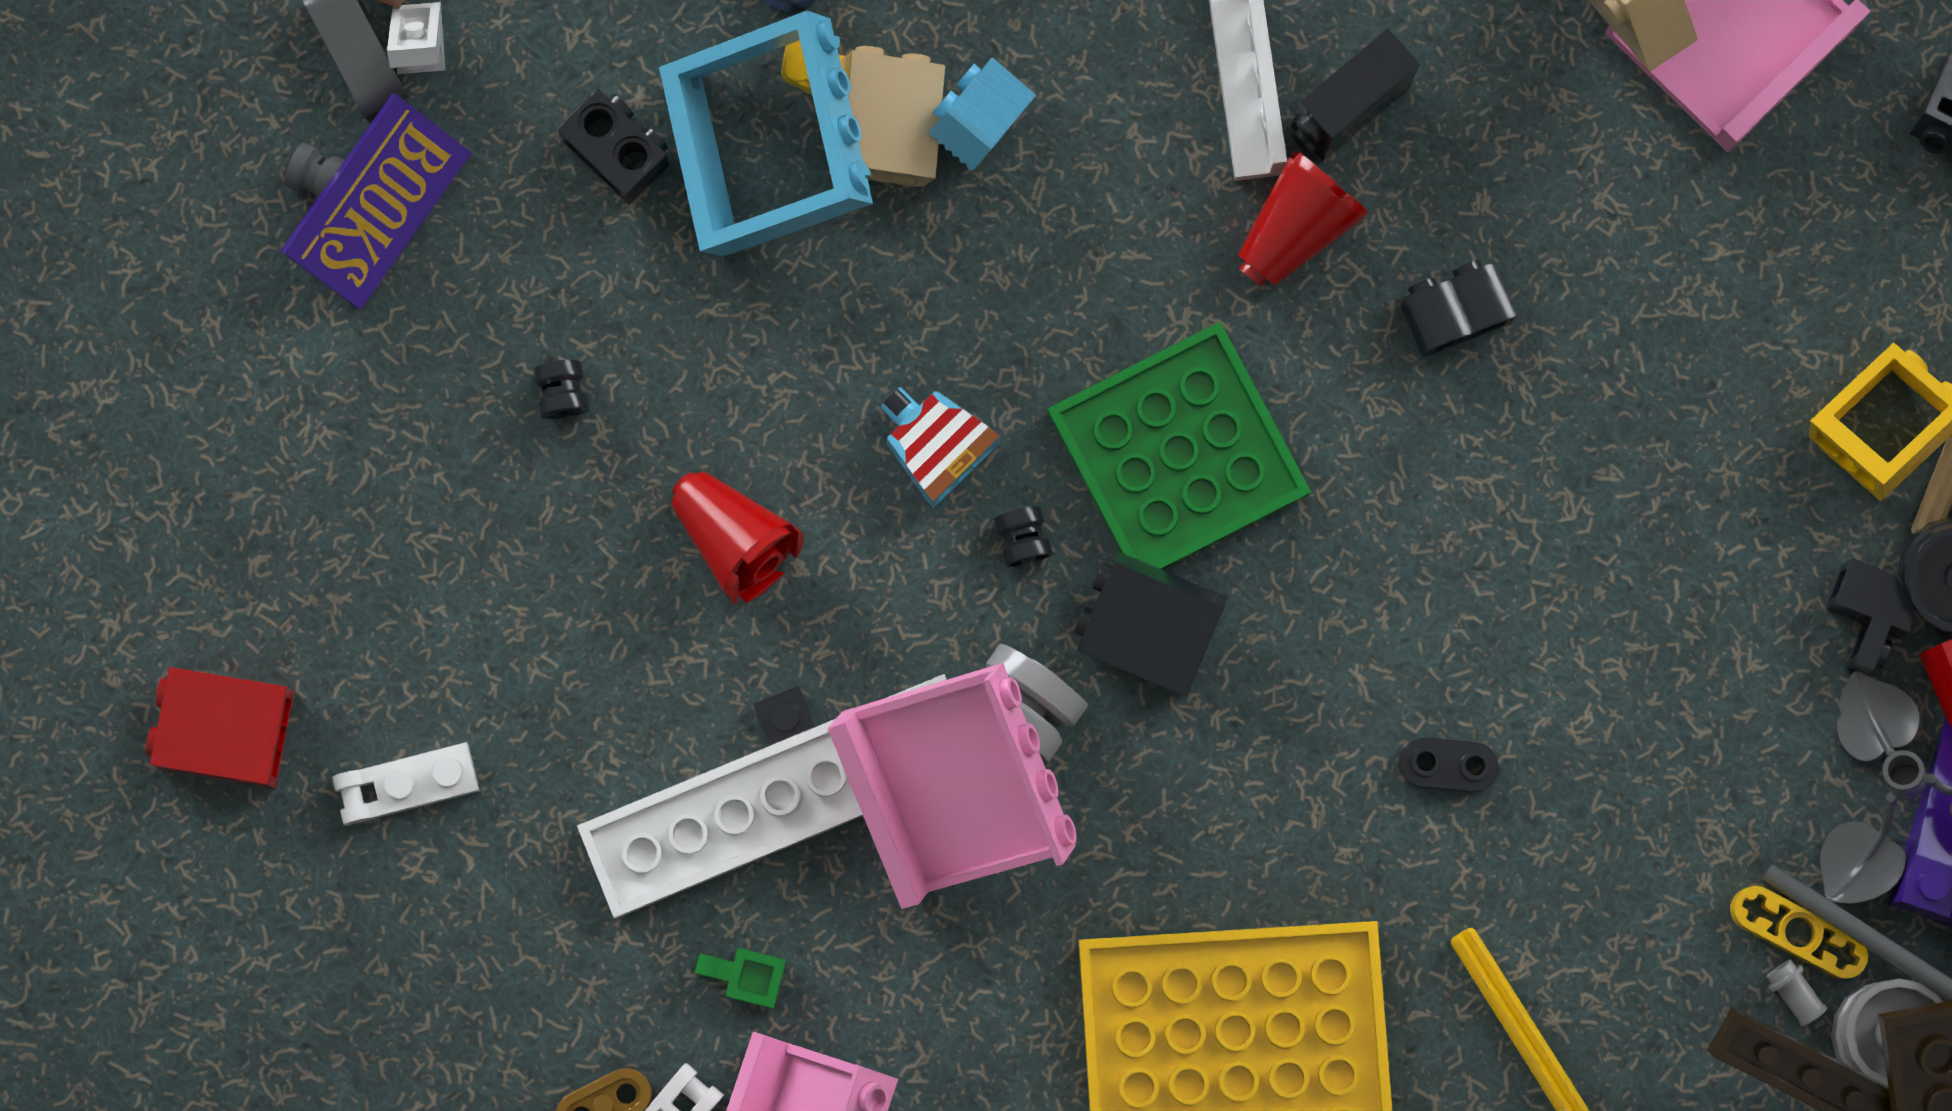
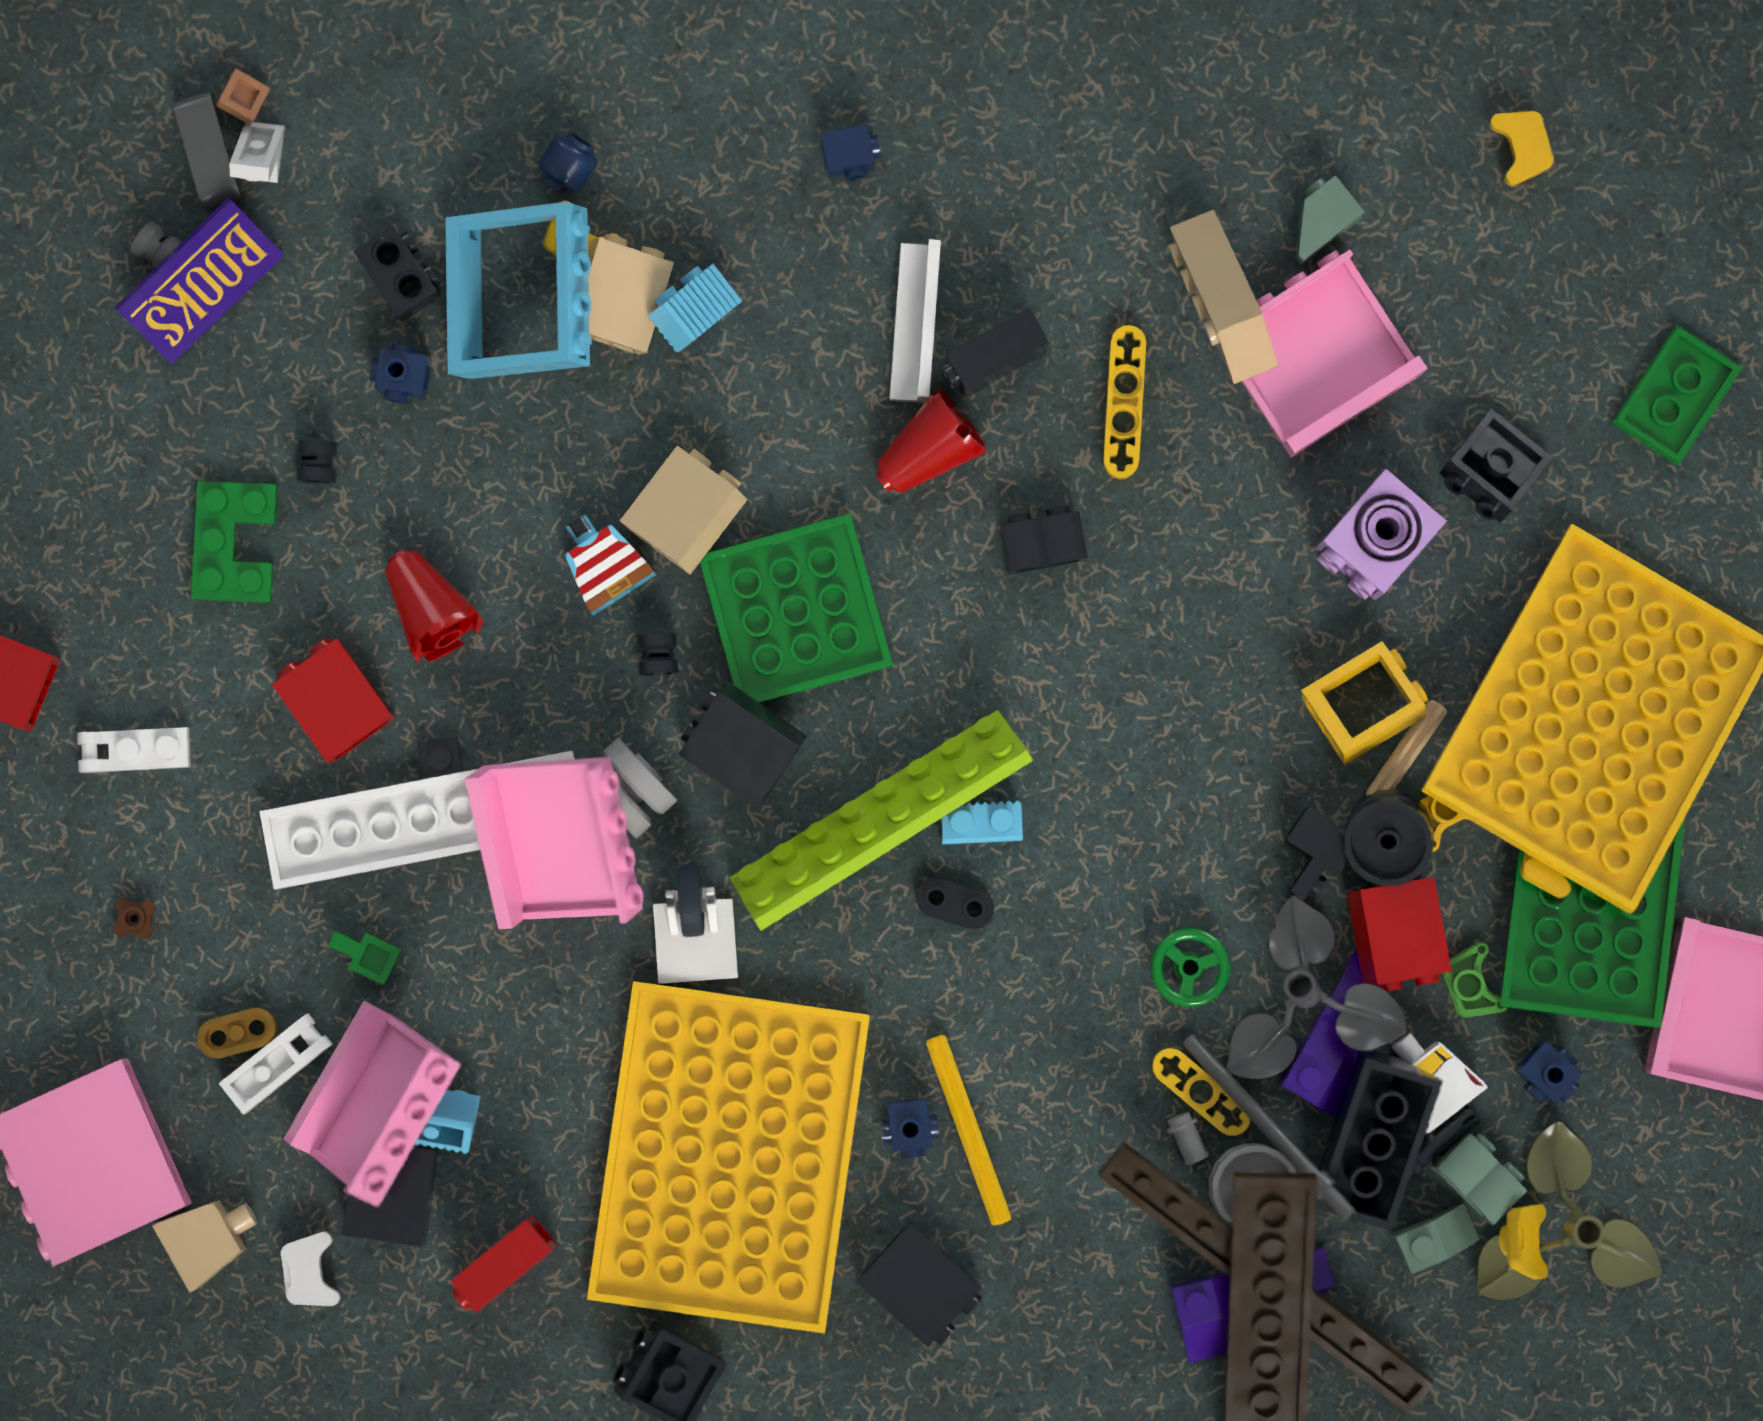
camera: 15 degrees right, 5 degrees up
(437, 999) = (143, 925): none -> reddish brown plate
(461, 544) = (218, 511): none -> green plate
(639, 671) = (332, 699): none -> red brick
(653, 276) = (411, 383): none -> dark blue brick
(1019, 355) = (684, 508): none -> tan brick
(1140, 864) = (694, 932): none -> white plate
(1338, 680) = (880, 819): none -> lime plate
(1440, 1040) = (910, 1111): none -> dark blue brick
(1461, 659) = (983, 823): none -> medium azure brick
(1520, 126) = (1121, 402): none -> yellow beam
(1755, 819) = (1185, 997): none -> green piece
(1861, 218) = (1365, 557): none -> lavender brick

